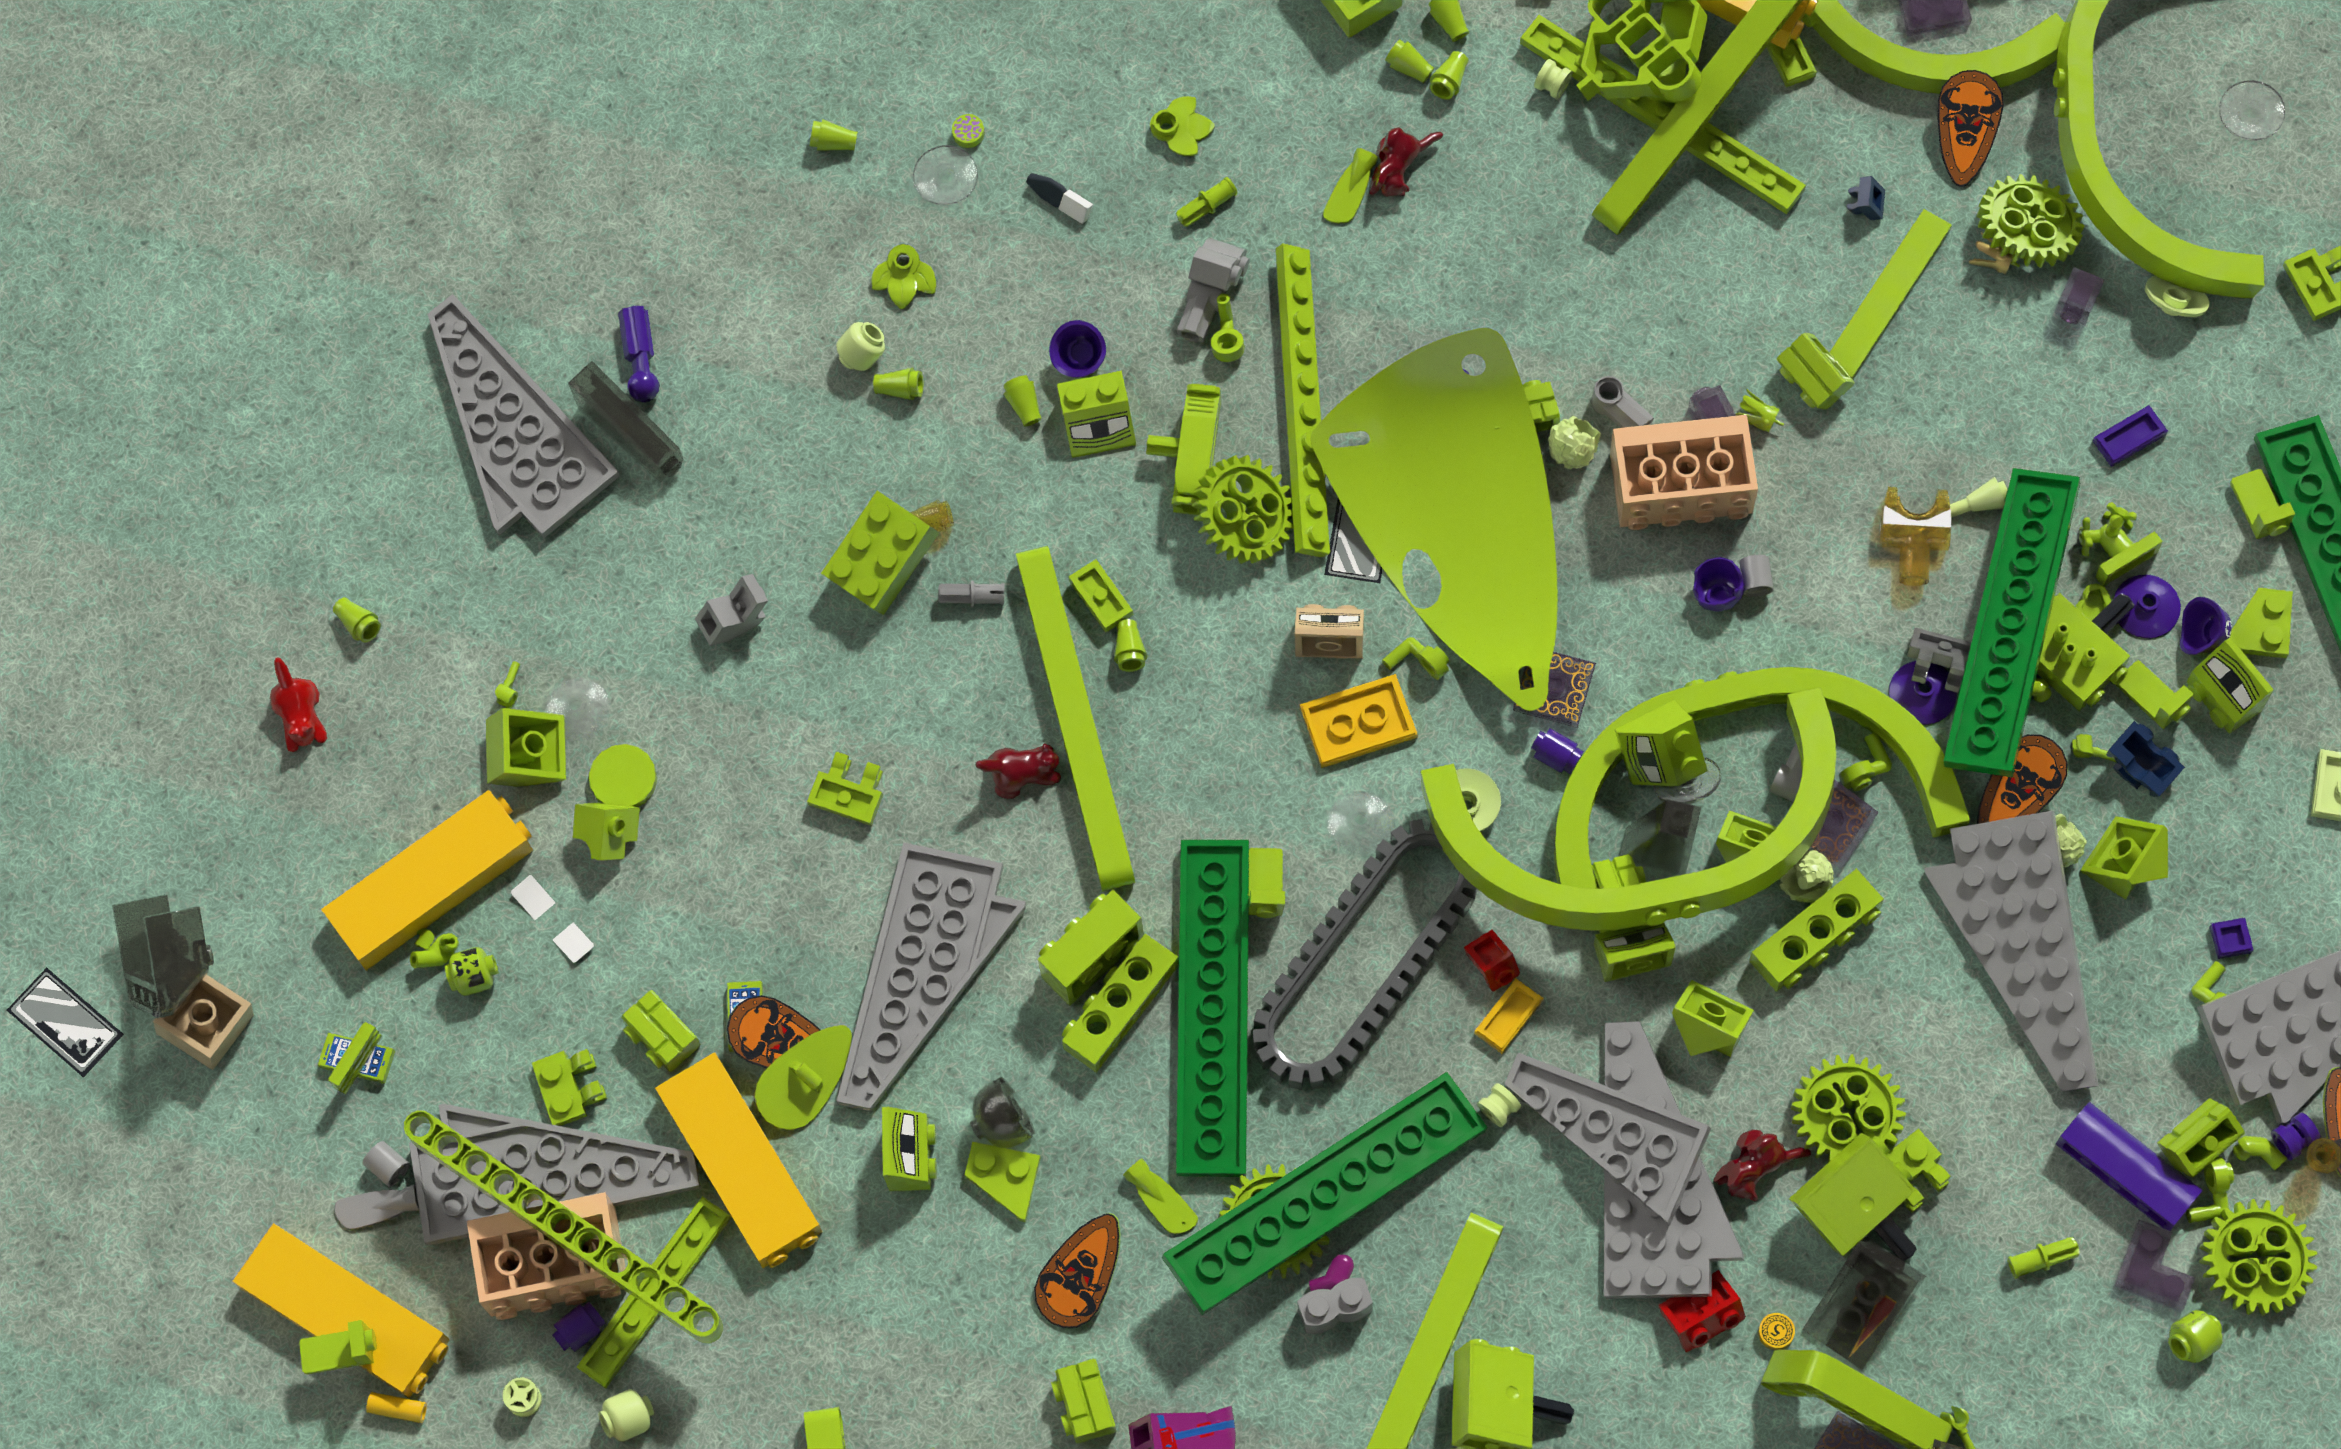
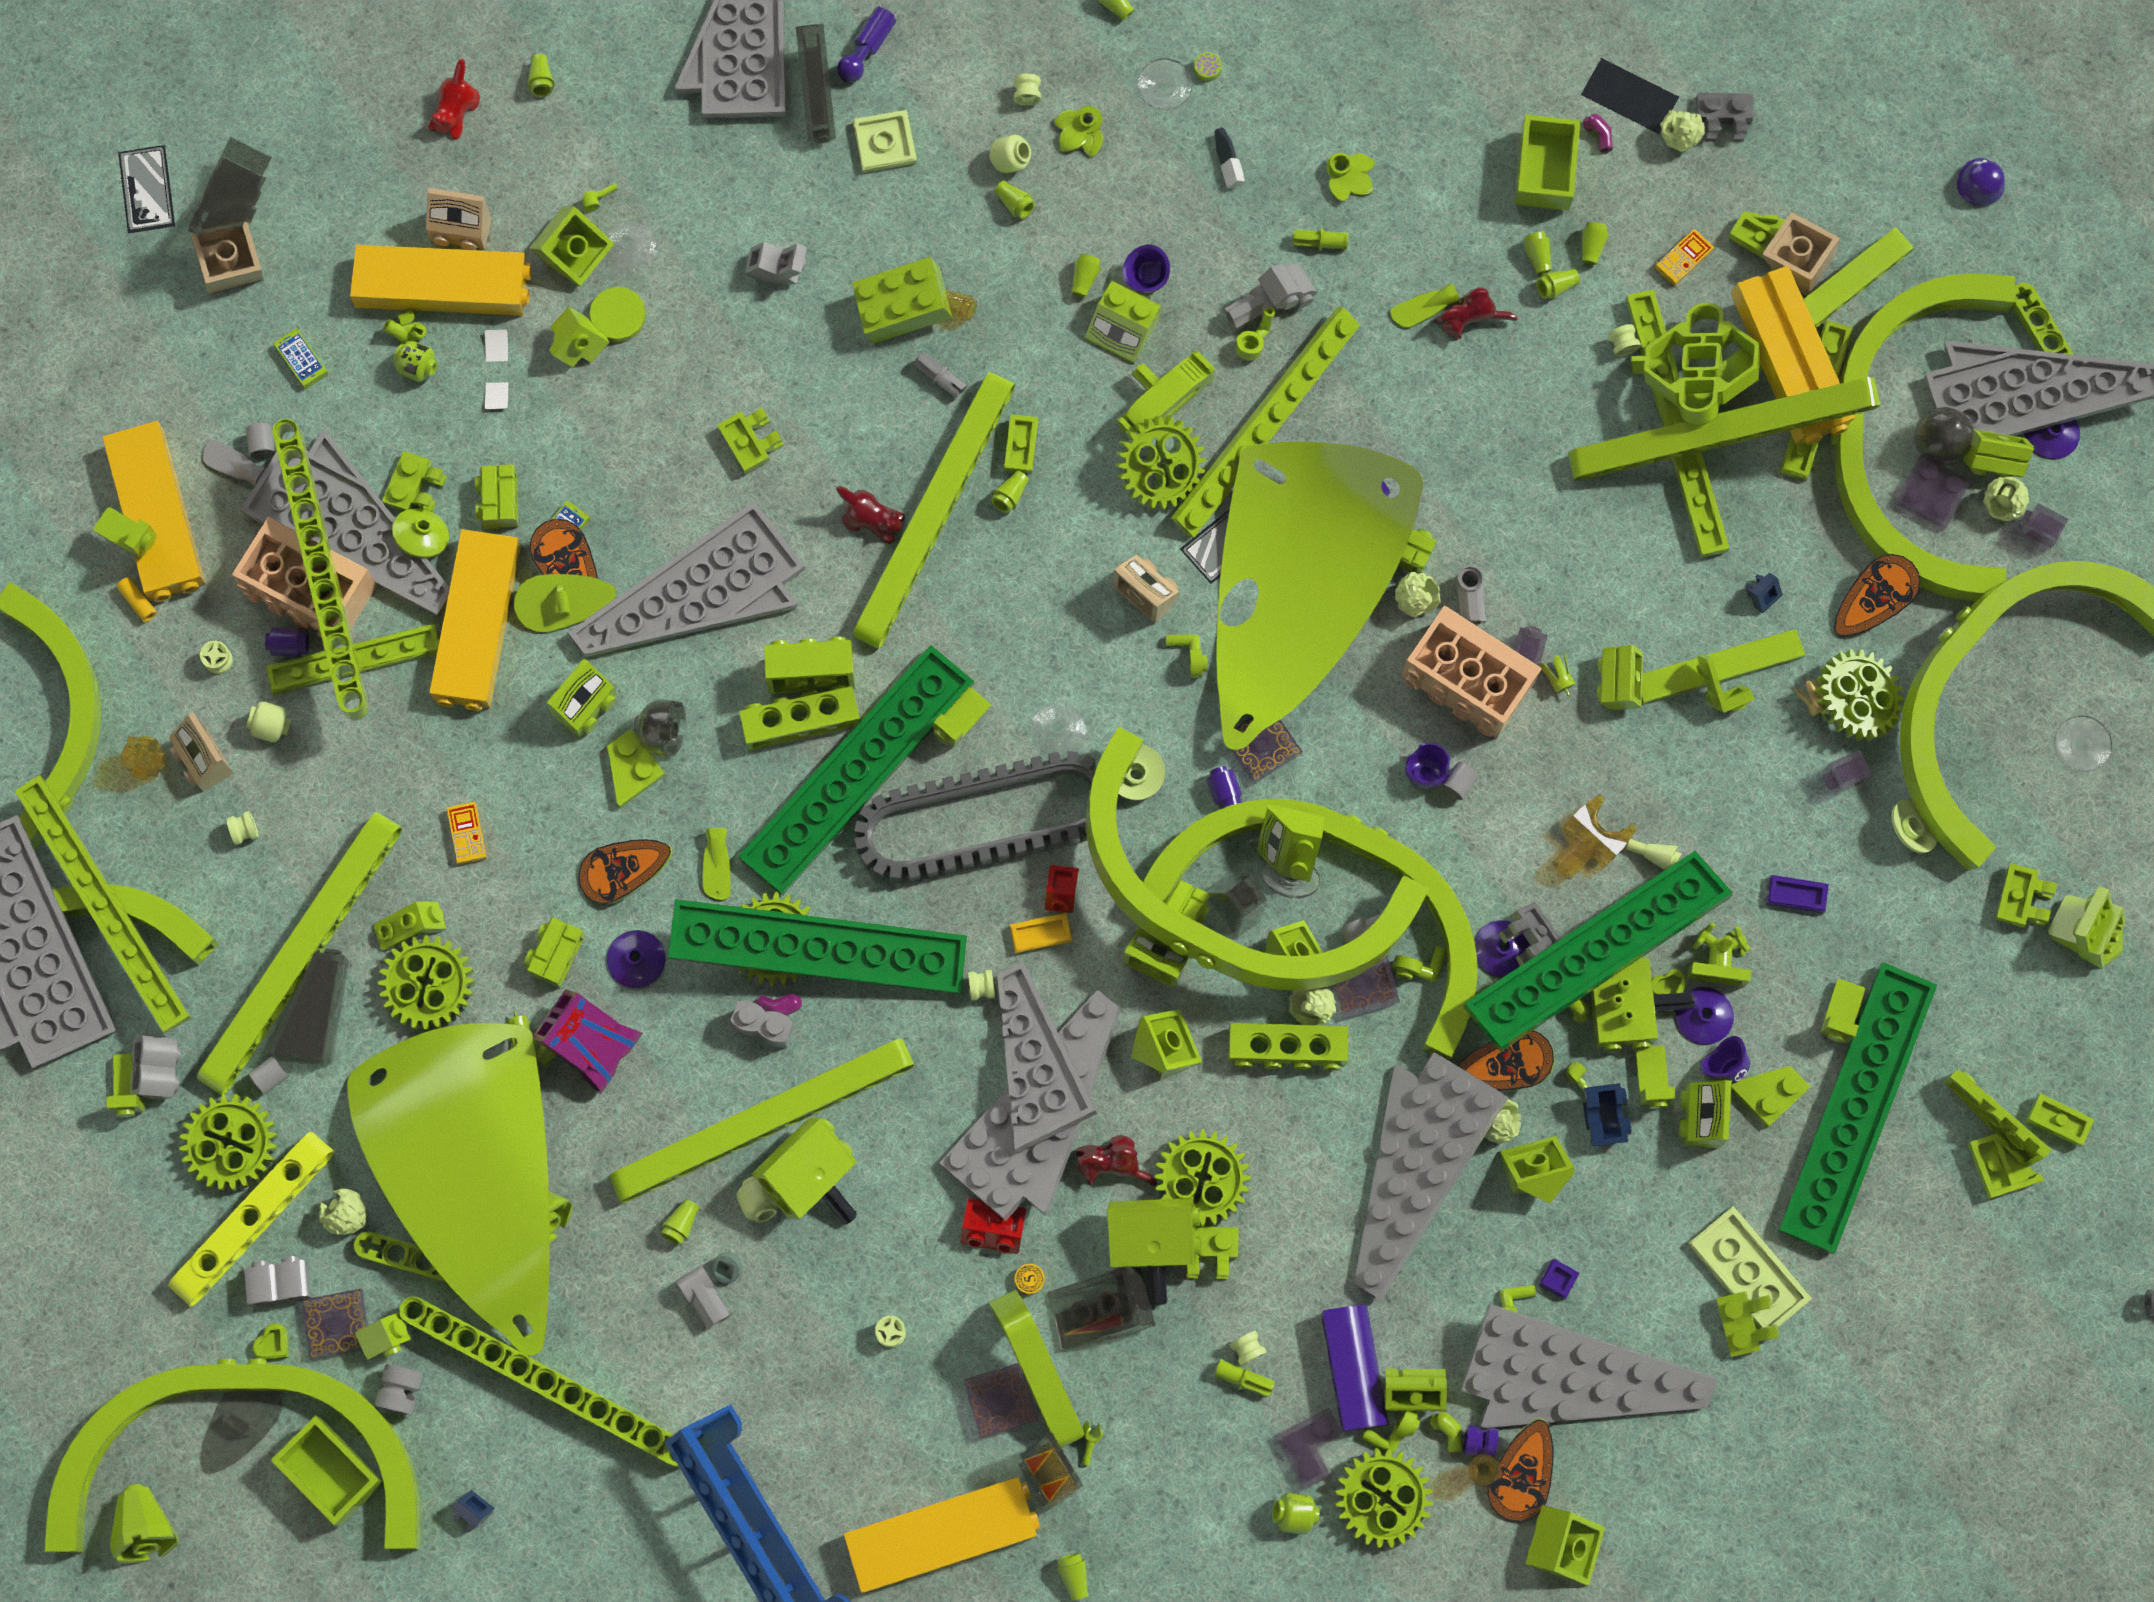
camera: 30 degrees right, 5 degrees up
(354, 1057) = (295, 357): lime tile -> none
(397, 809) = (457, 219): none -> tan slope
(615, 1124) = (417, 541): none -> lime dish
(732, 427) = (884, 141): none -> yellowish green tile
(823, 277) = (1027, 89): none -> yellowish green wheel
(903, 1362) = (466, 833): none -> yellow tile
(1165, 1363) = (643, 971): none -> dark purple dish
(1358, 721) = (1115, 662): yellow tile -> none
(1910, 321) = (1731, 699): none -> lime bracket
(2023, 1227) = (1248, 1348): none -> yellowish green wheel

